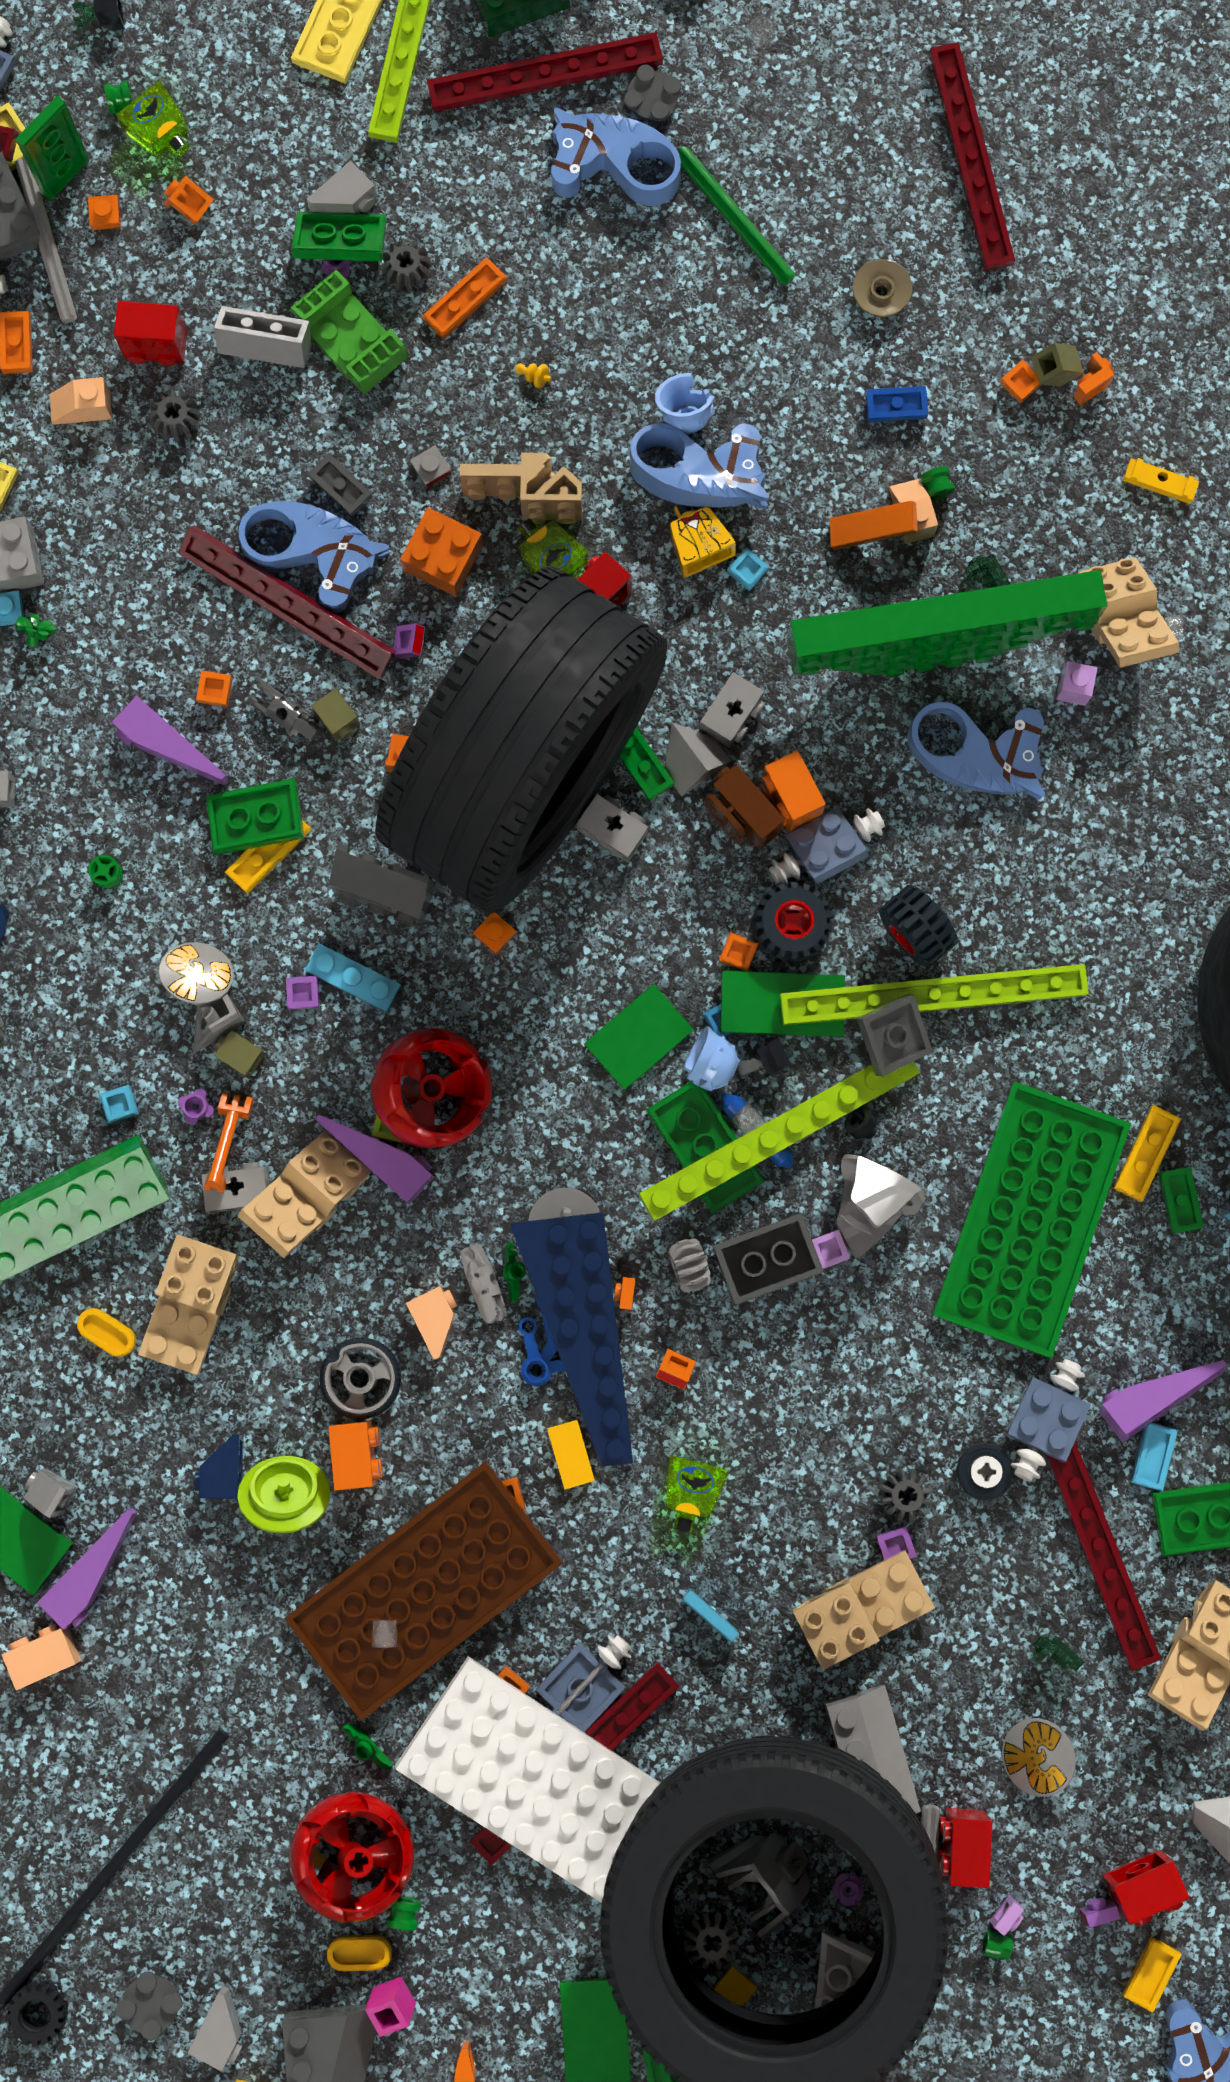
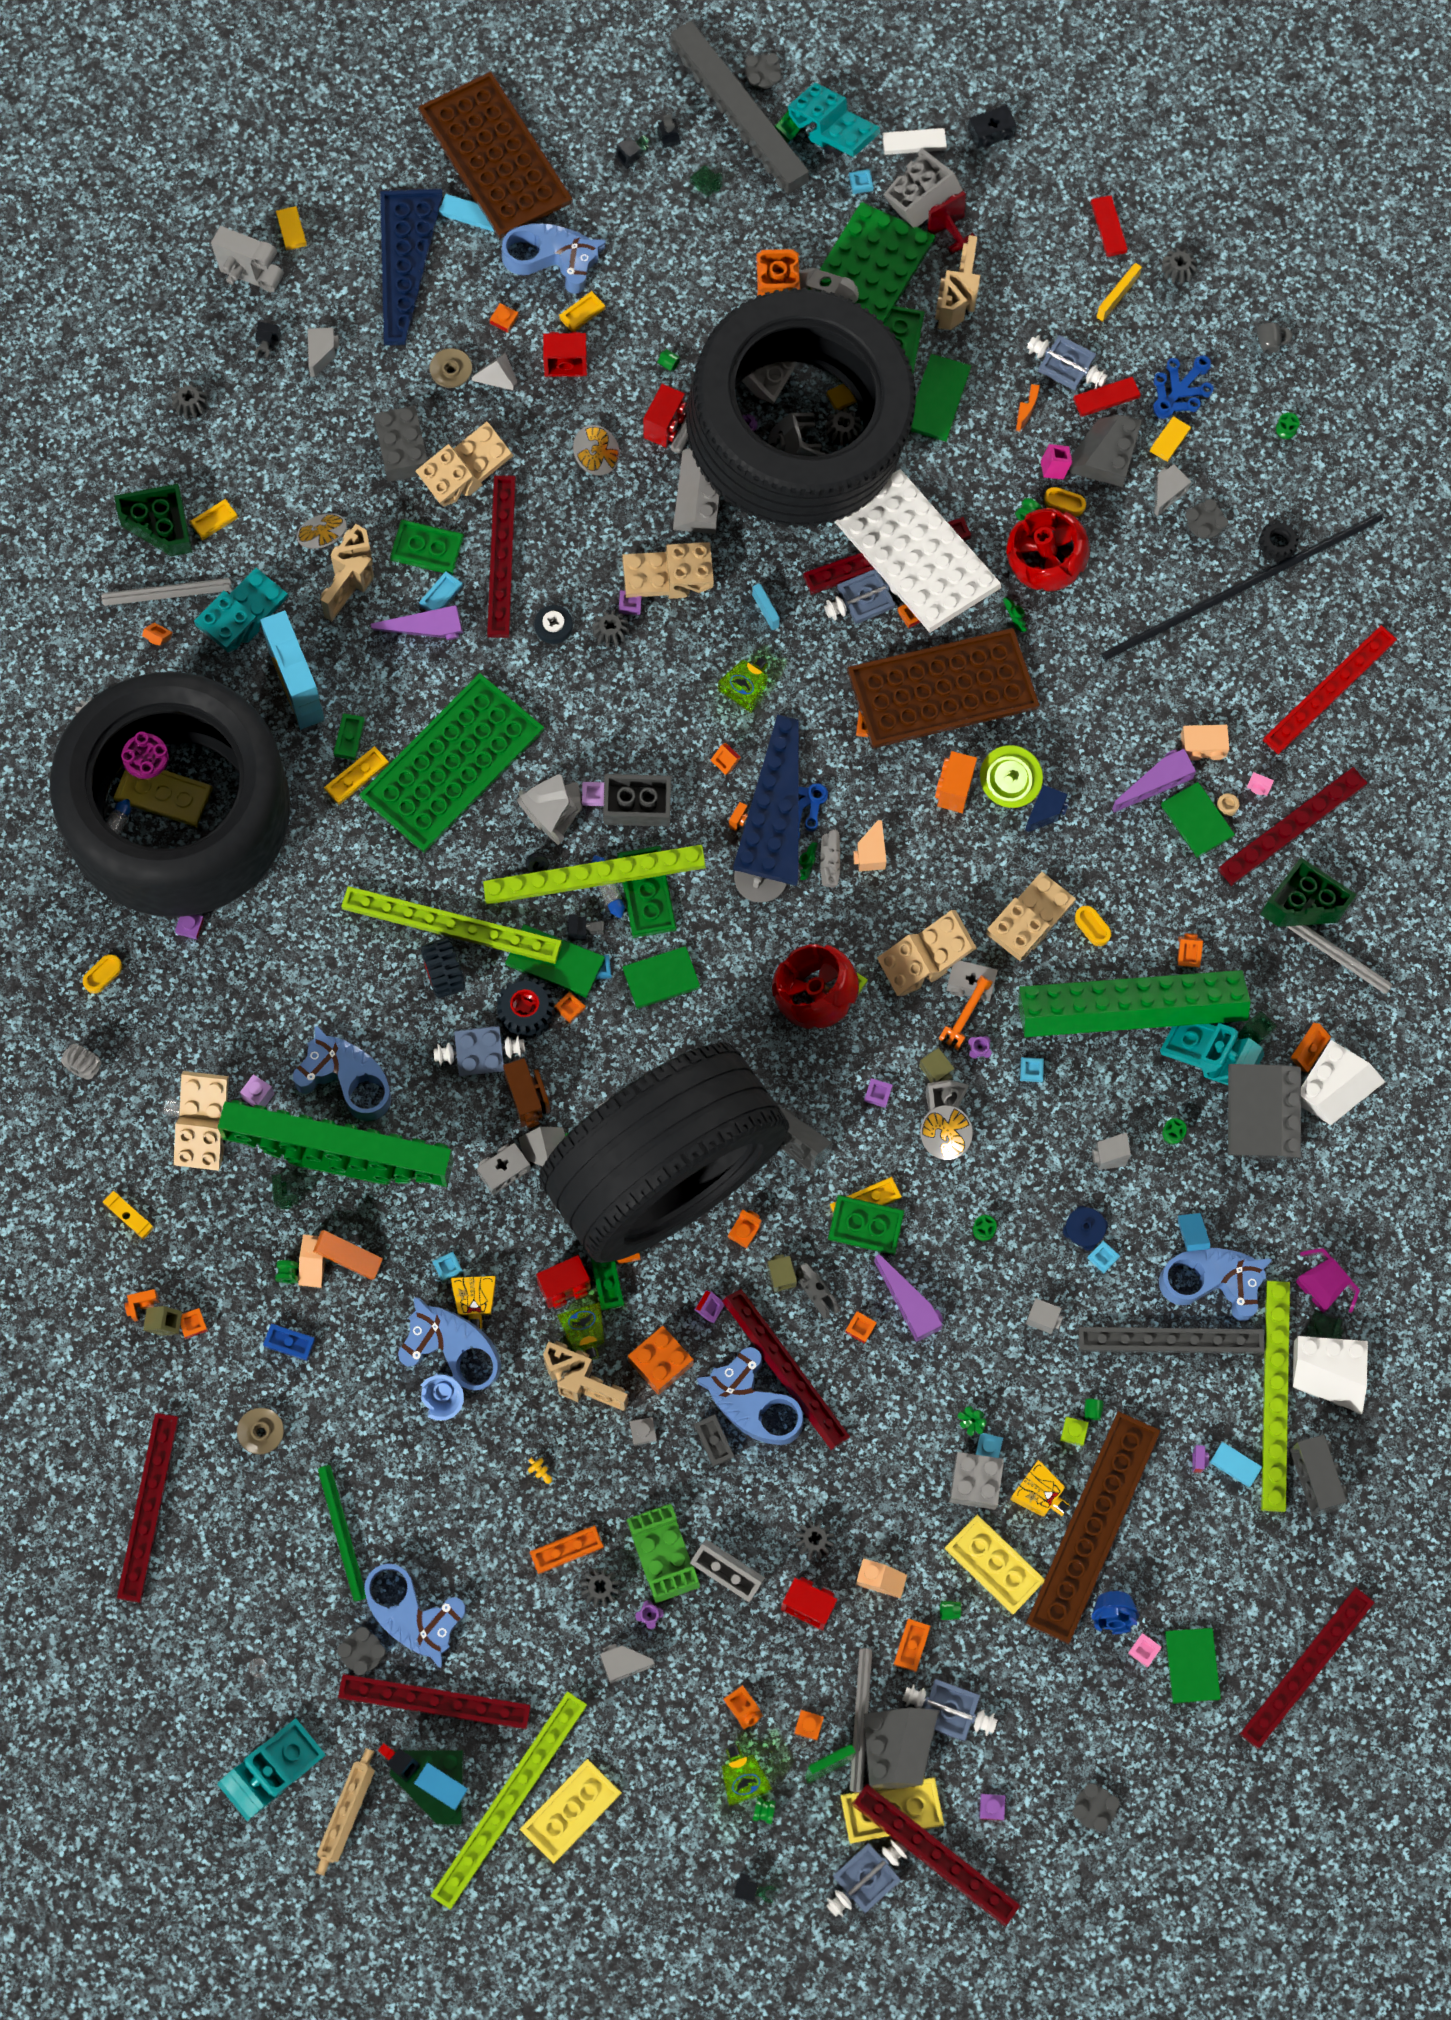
camera: 160 degrees left, 10 degrees down
(49, 1492) = (1164, 835): light grey slope -> none
(339, 236) = (641, 1628): green tile -> none
(339, 1360) = (915, 830): light grey wheel -> none
(353, 978) = (840, 1091): medium azure plate -> none
(384, 1634) = (978, 668): clear hose -> none
(391, 1165) = (862, 955): medium lavender slope -> none
(570, 1454) = (815, 735): yellow tile -> none
(689, 1265) = (689, 815): light grey gear -> none
(711, 1061) = (615, 939): light blue helmet -> none
(792, 791) = (487, 1095): orange brick -> none
(894, 1035) = (490, 904): dark grey tile -> none
(1007, 1916) = (656, 373): lavender plate -> none
(1048, 1420) = (499, 636): sand blue plate -> none
(1062, 1654) = (556, 506): clear green bracket -> none
(1099, 1912) = (598, 353): medium lavender plate -> none

